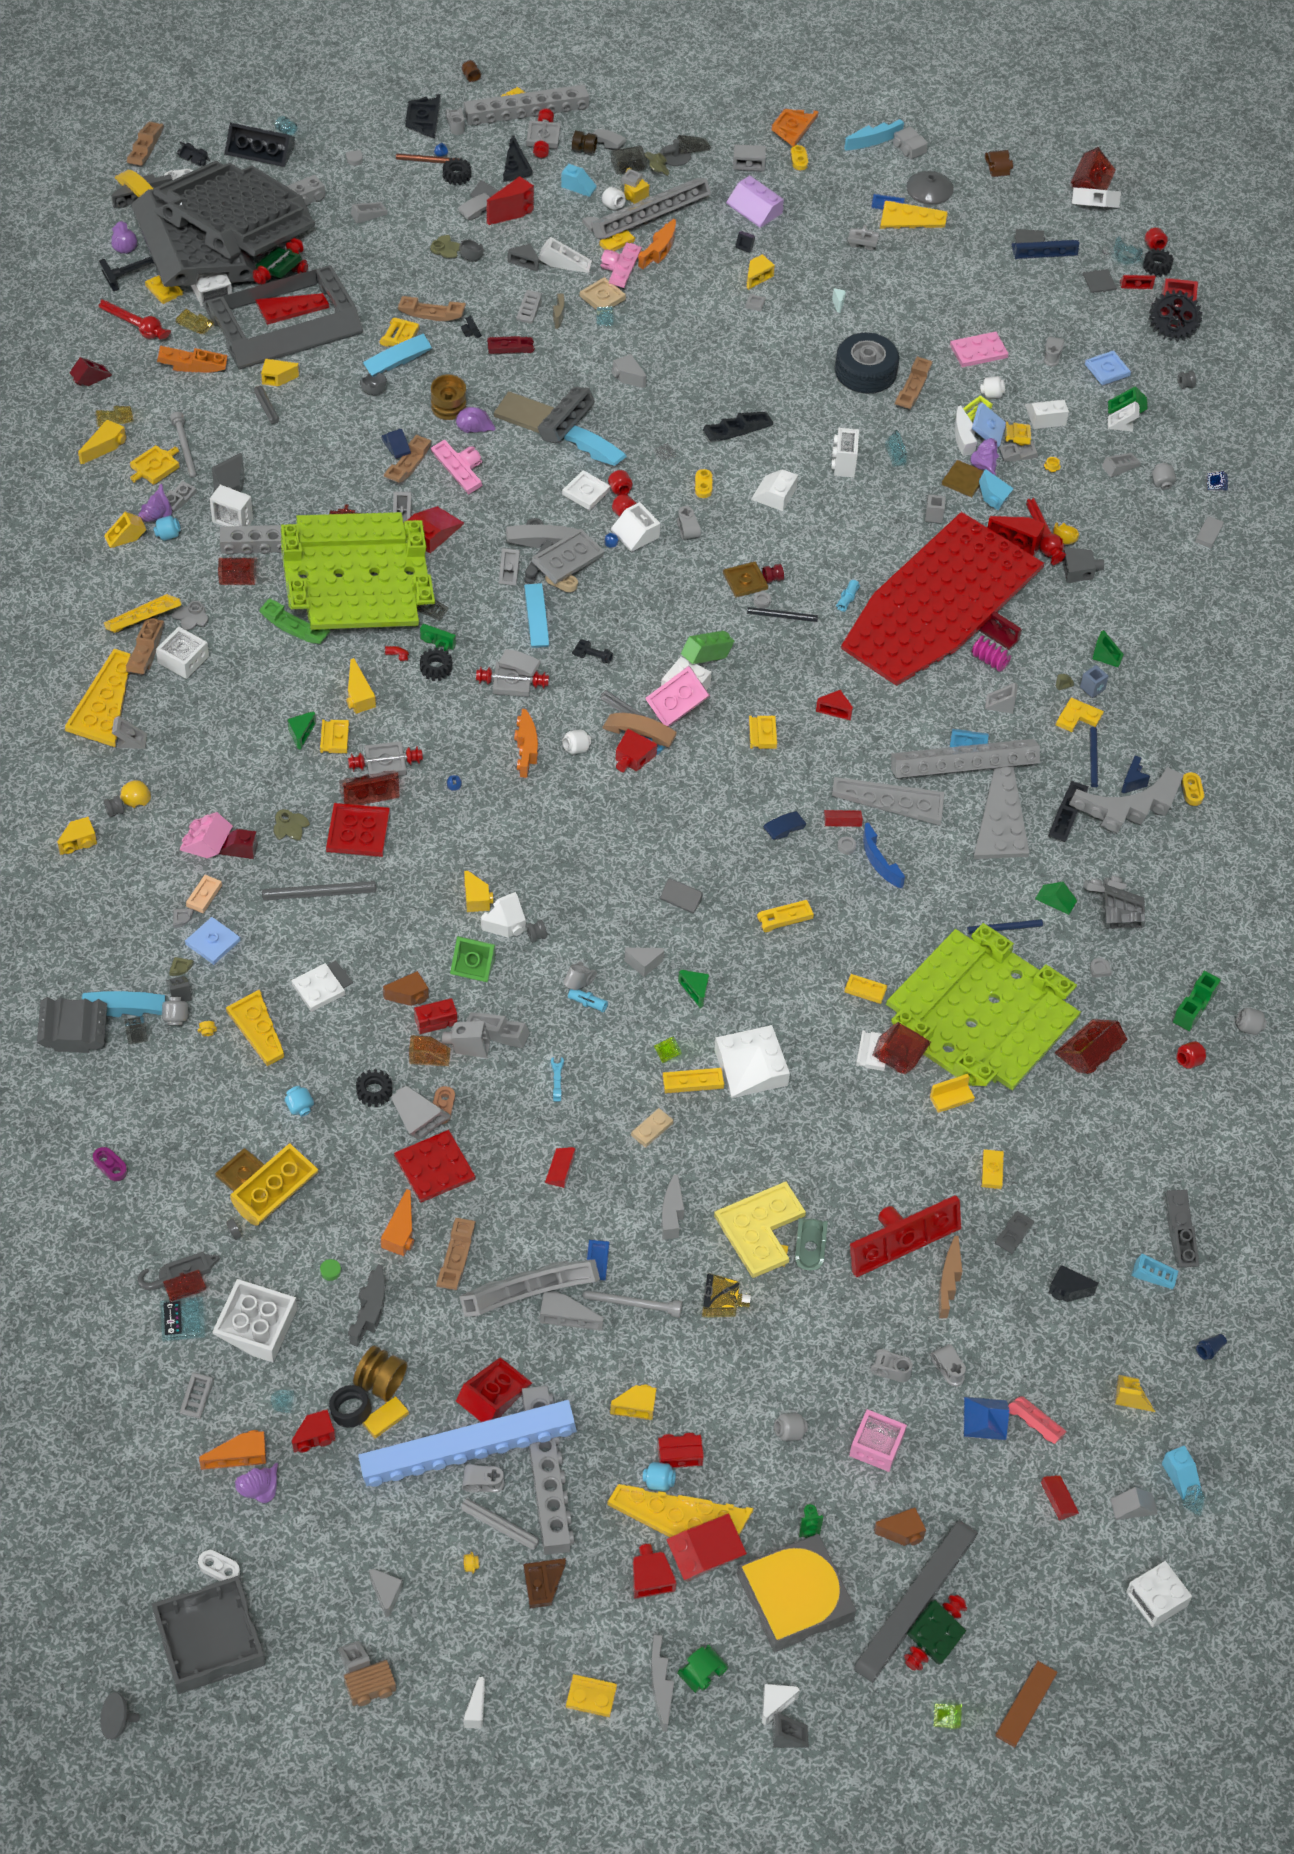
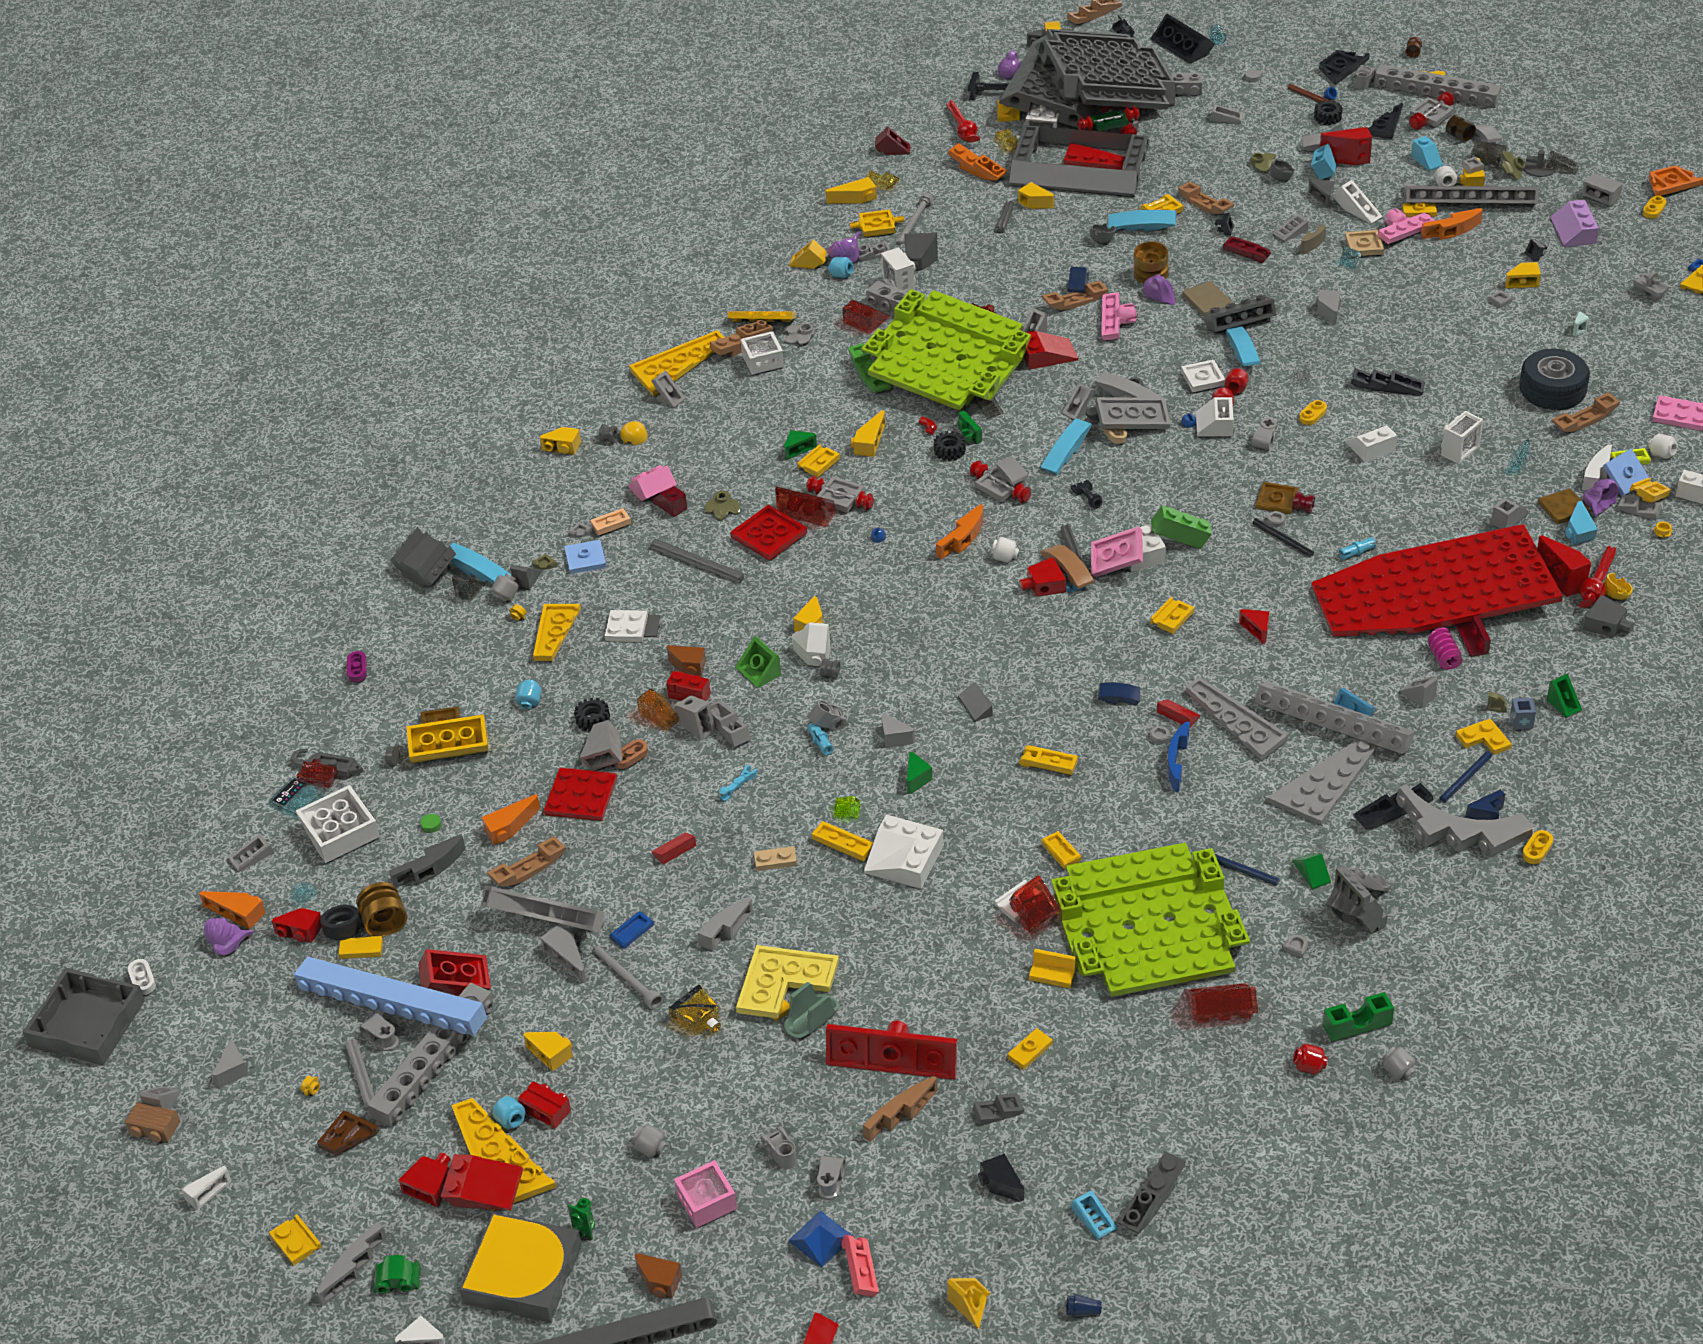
camera: 45 degrees right, 10 degrees down
(502, 226) = (1323, 162): none -> medium azure slope

